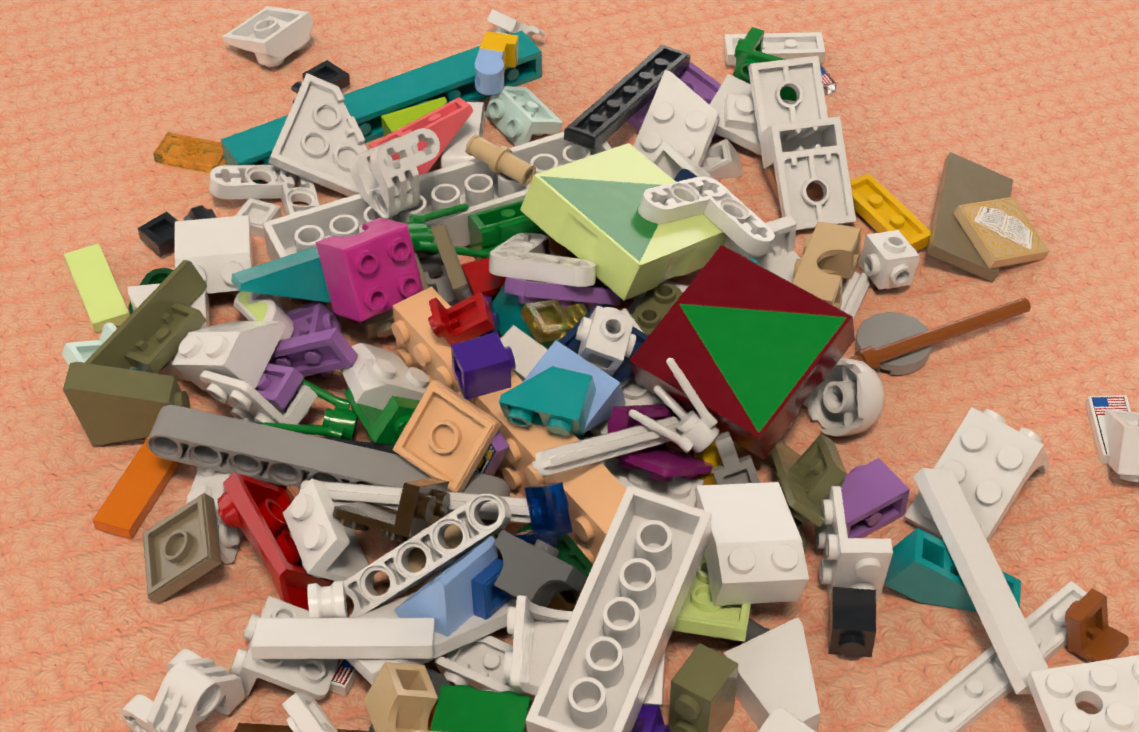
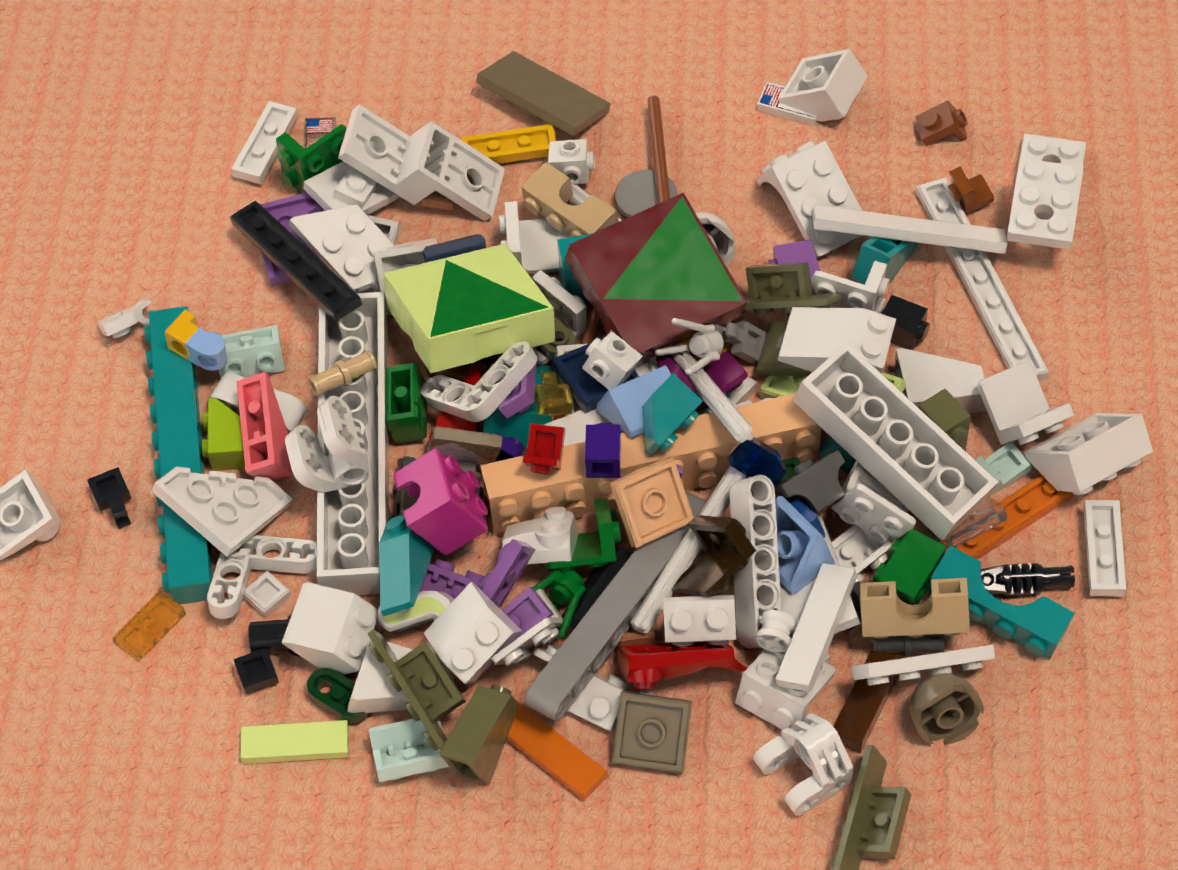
camera: 65 degrees left, 10 degrees up
(423, 238) = (398, 459): green plant -> none
(715, 201) = (491, 239): white beam -> none
(1001, 232) = (574, 81): tile -> none

